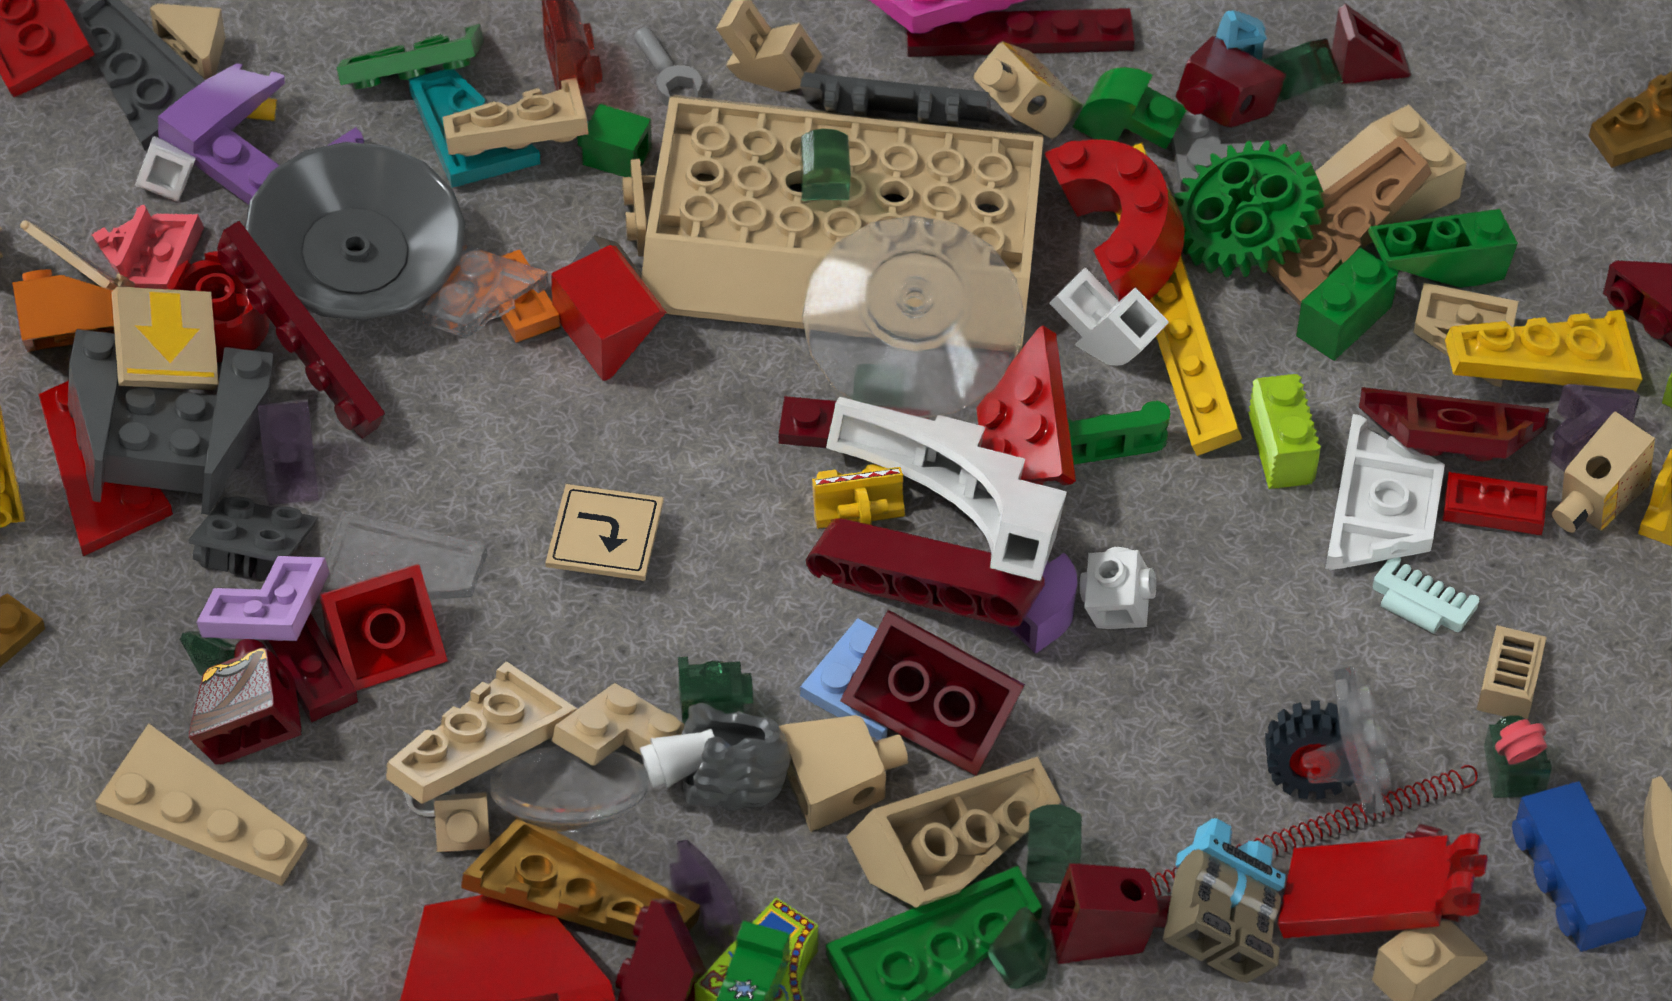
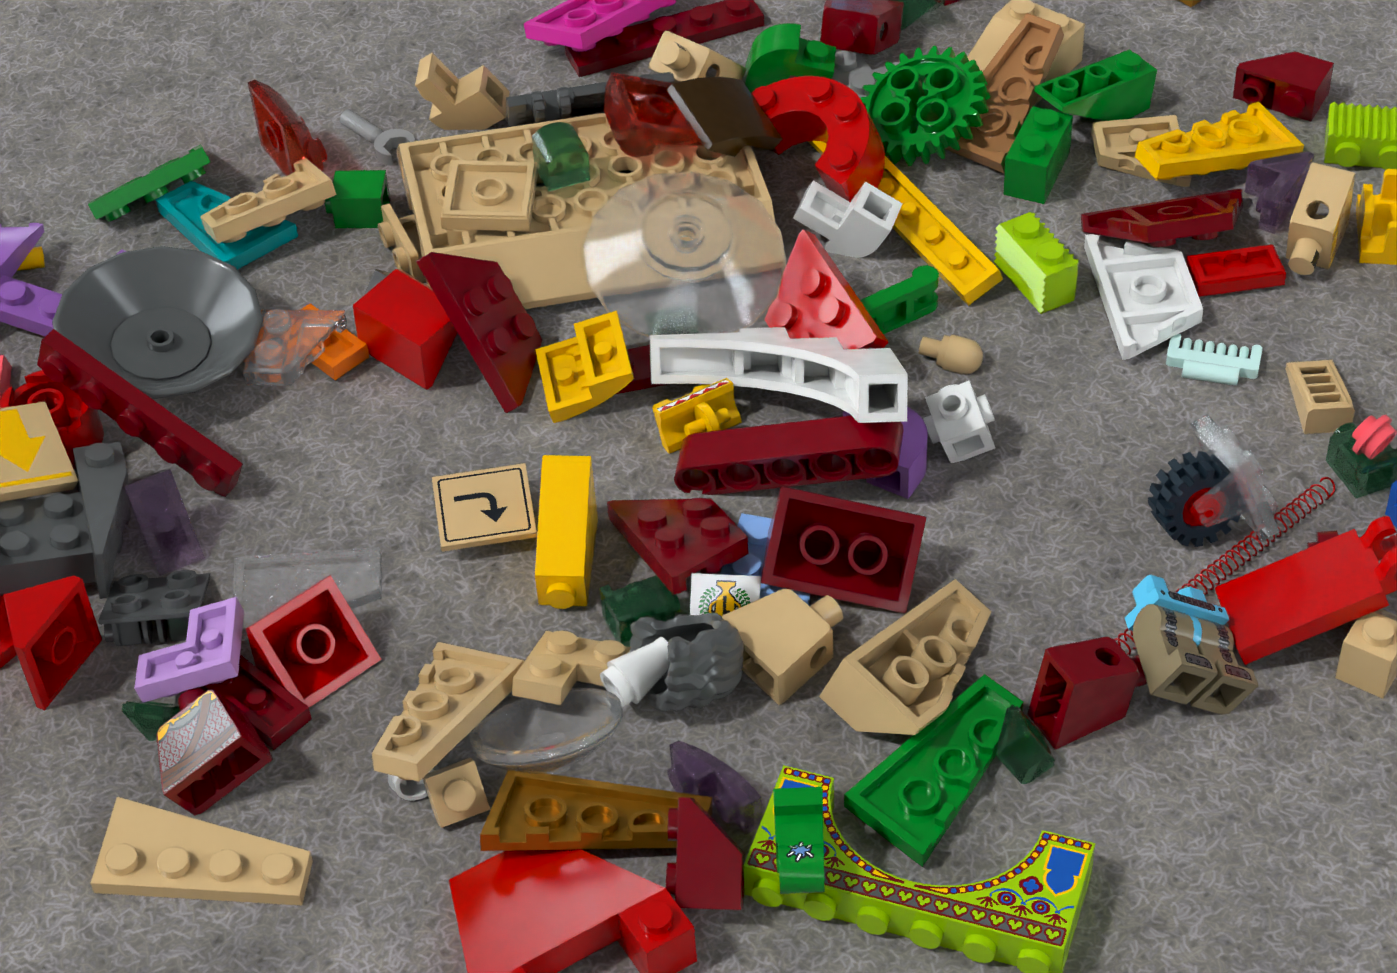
camera: 15 degrees left, 5 degrees down
(138, 541) = (51, 634): none -> red slope
(670, 586) = (565, 531): none -> yellow slope
(684, 330) = (487, 320): none -> dark red wing
(737, 188) = (489, 195): none -> tan tile
(766, 408) = (585, 368): none -> yellow slope
(781, 626) = (679, 536): none -> dark red wing
(795, 701) = (722, 592): none -> white sticker
(942, 143) = (645, 116): none -> clear red slope
(1018, 165) = (724, 114): none -> dark brown slope
(1052, 843) = (1008, 646): clear green piece -> none
(1152, 507) = (953, 353): none -> tan cylinder

